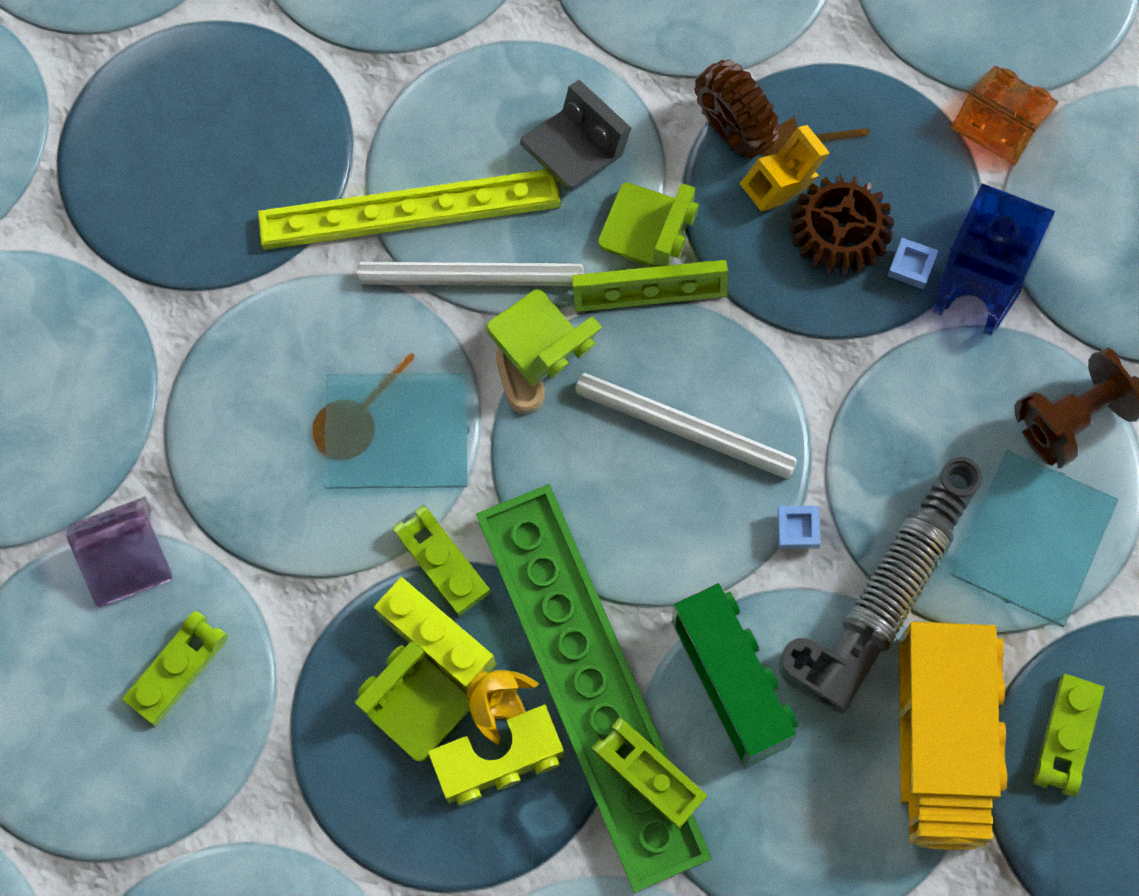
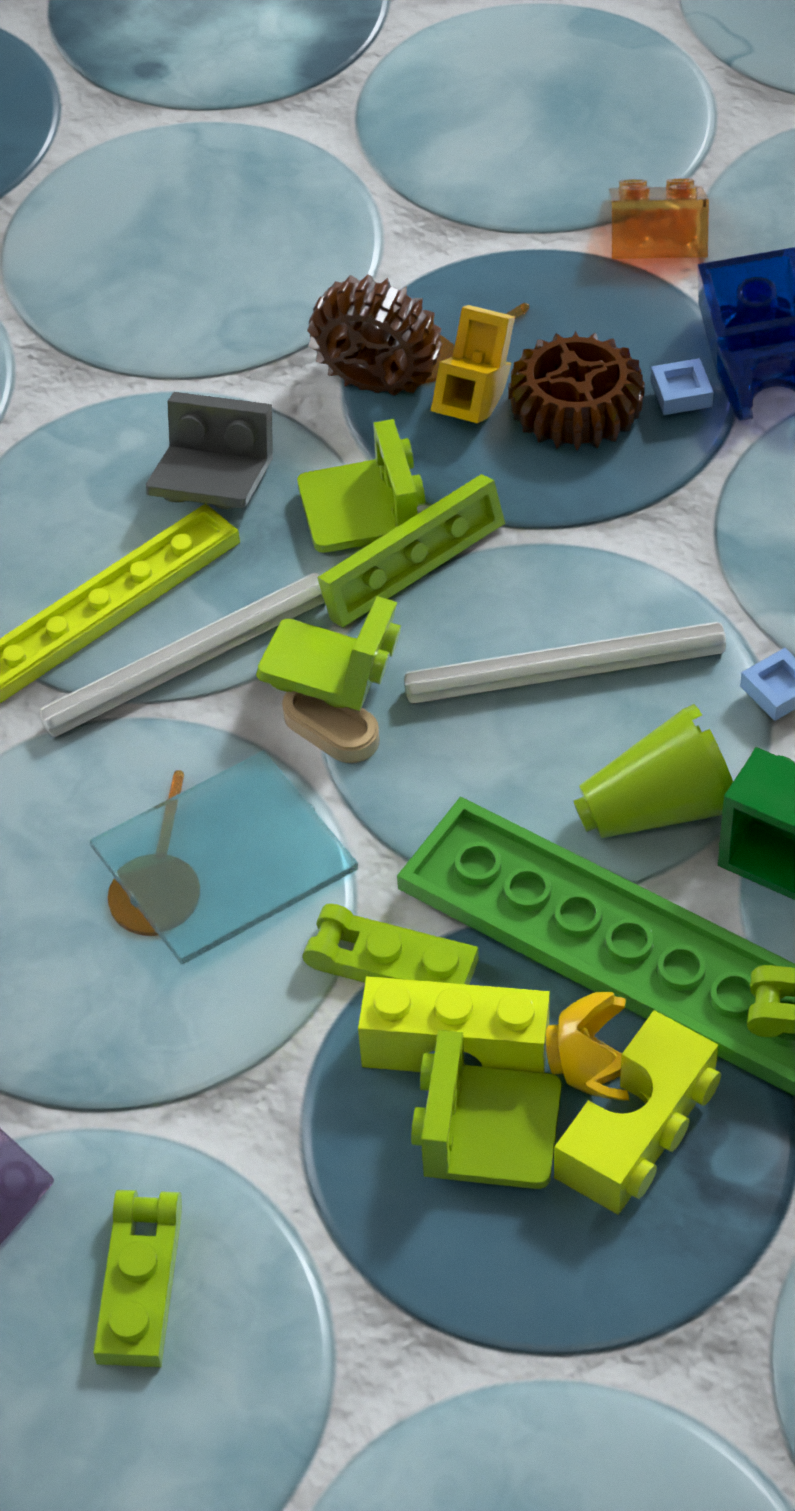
camera: 35 degrees left, 20 degrees down
(669, 552) = (658, 782): none -> lime cone

